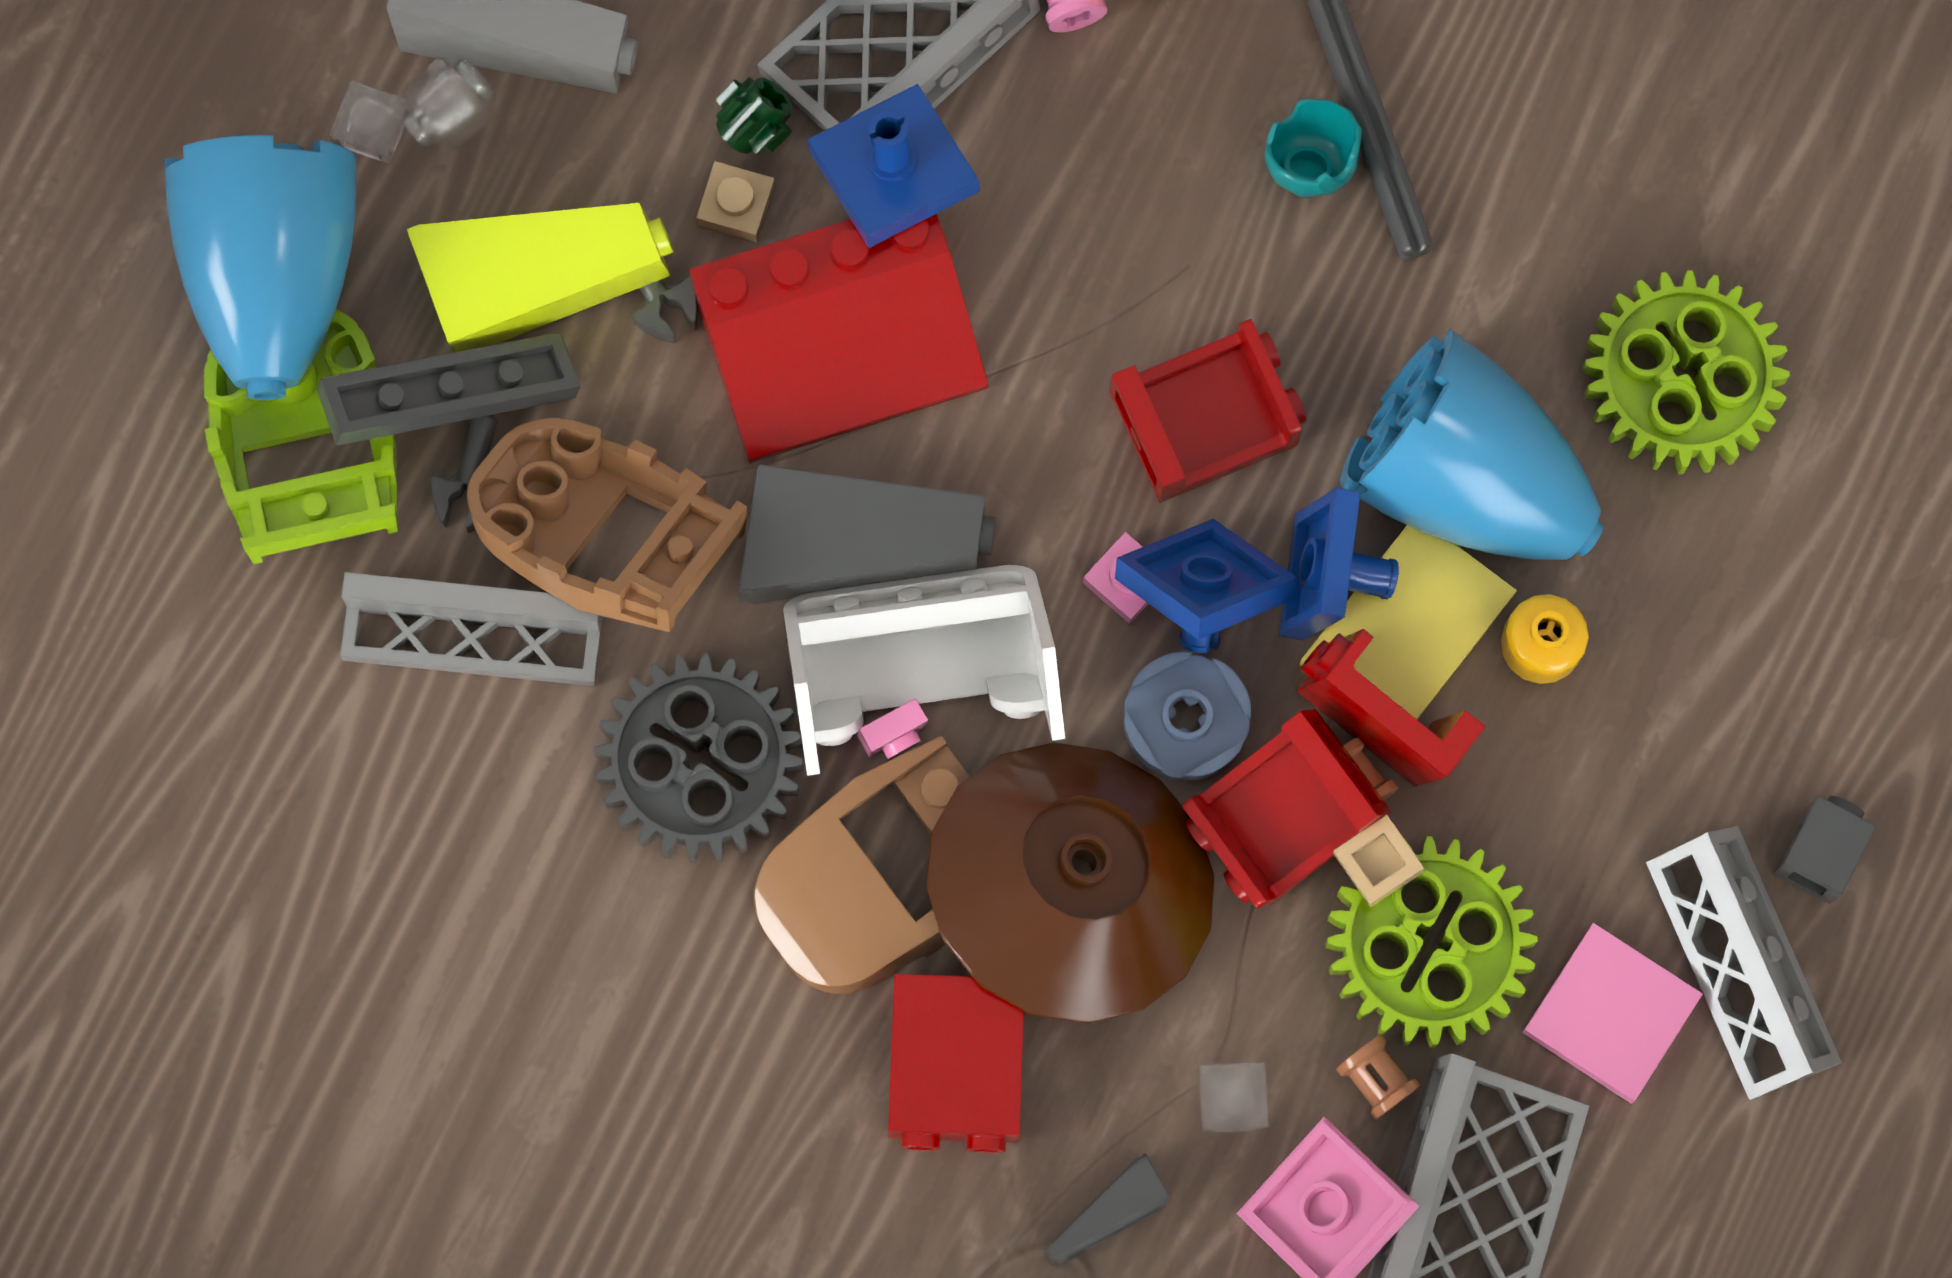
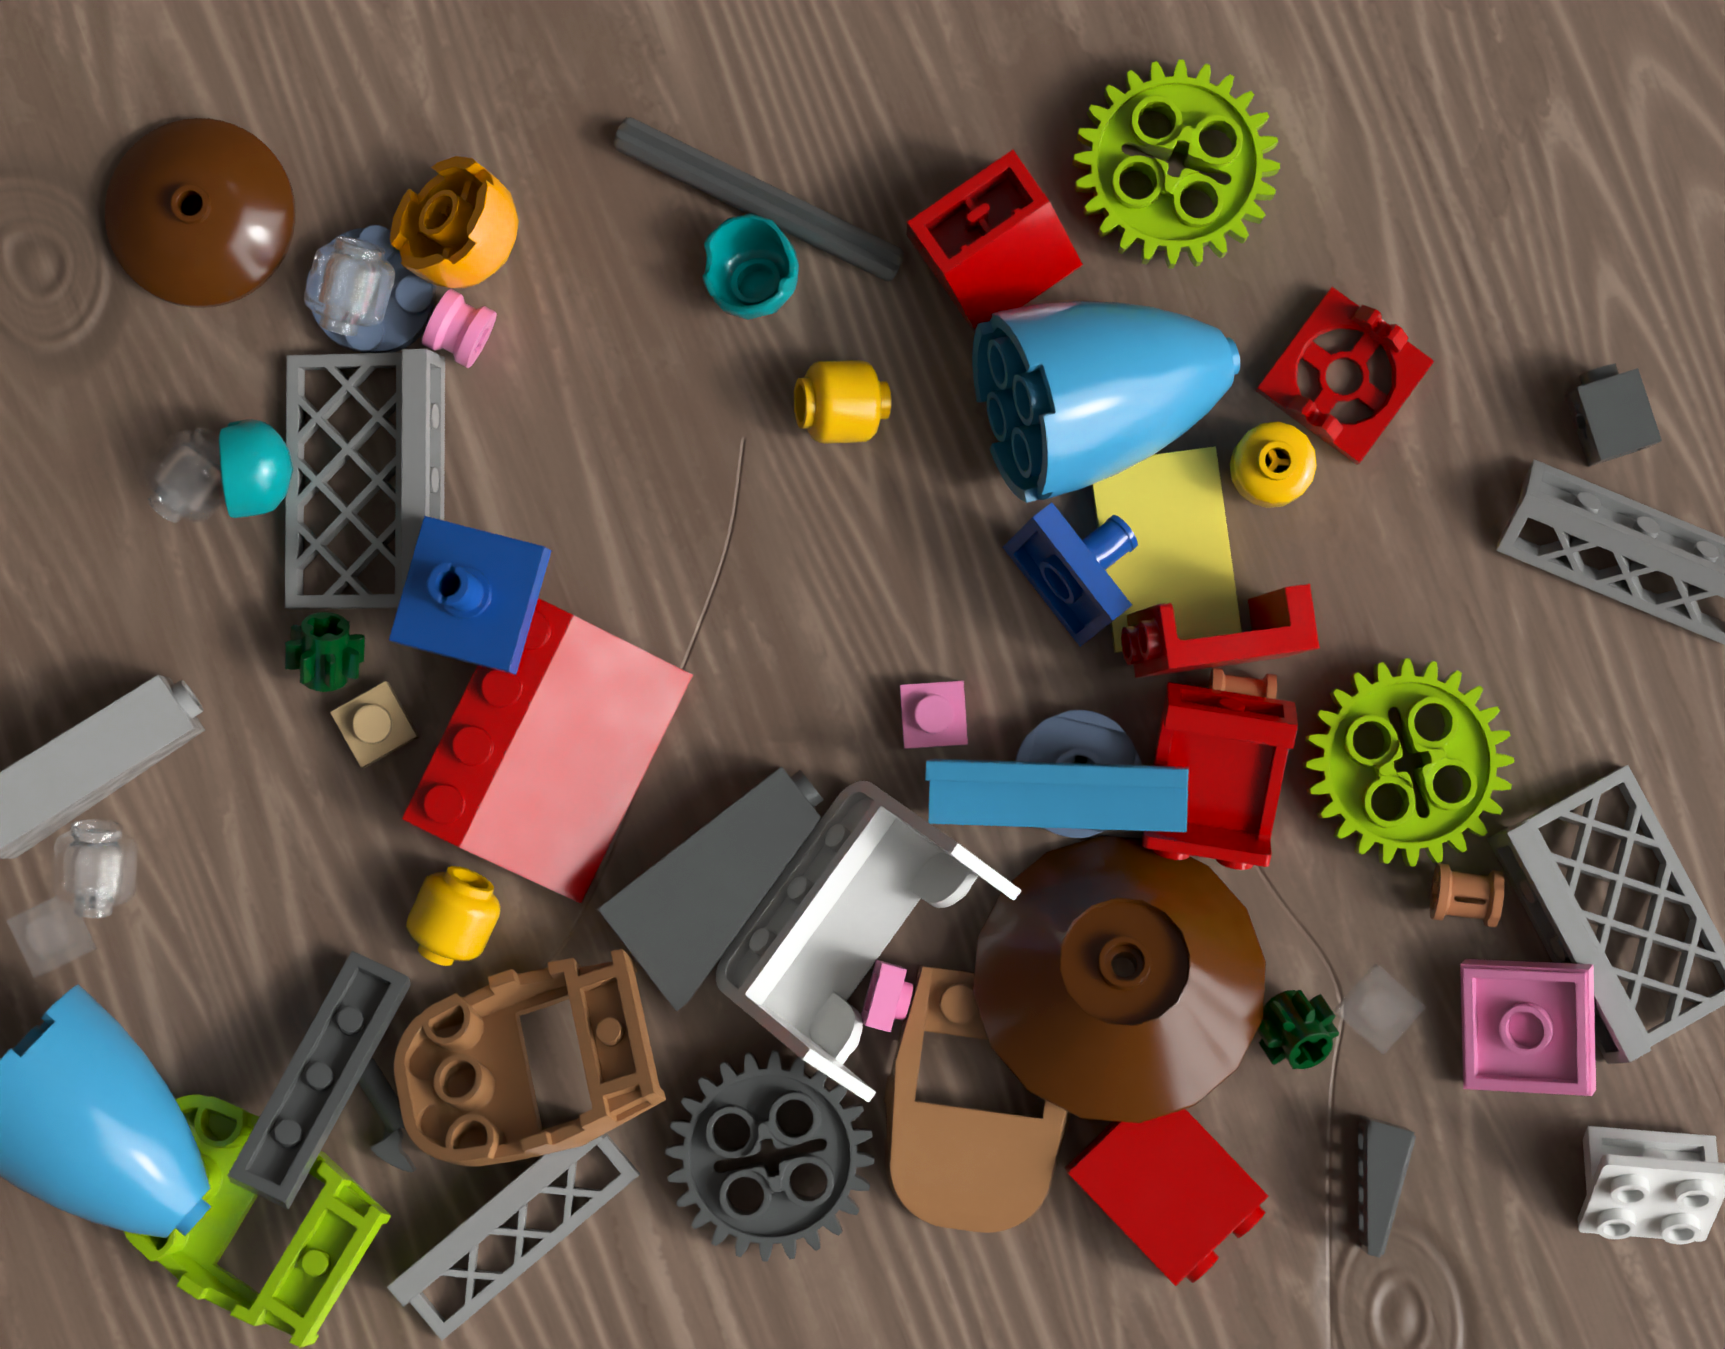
camera: 40 degrees left, 10 degrees up
(534, 268) = (282, 934): neon yellow slope -> none
(654, 376) = (453, 915): none -> yellow head
(678, 296) = (382, 848): dark grey bar -> none
(1159, 1045) = (1297, 1029): none -> dark green gear
(1160, 706) = (1058, 795): none -> dark azure fence
(1205, 581) = (998, 668): blue tile -> none
(1208, 411) = (868, 536): red panel -> none
(1284, 300) = (841, 401): none -> yellow head
(1378, 861) = (1324, 749): tan plate -> none
(1505, 292) = (994, 241): none -> red slope
(1612, 1013) = (1578, 682): bright pink tile -> none
(1700, 588) = (1407, 366): none -> red piece

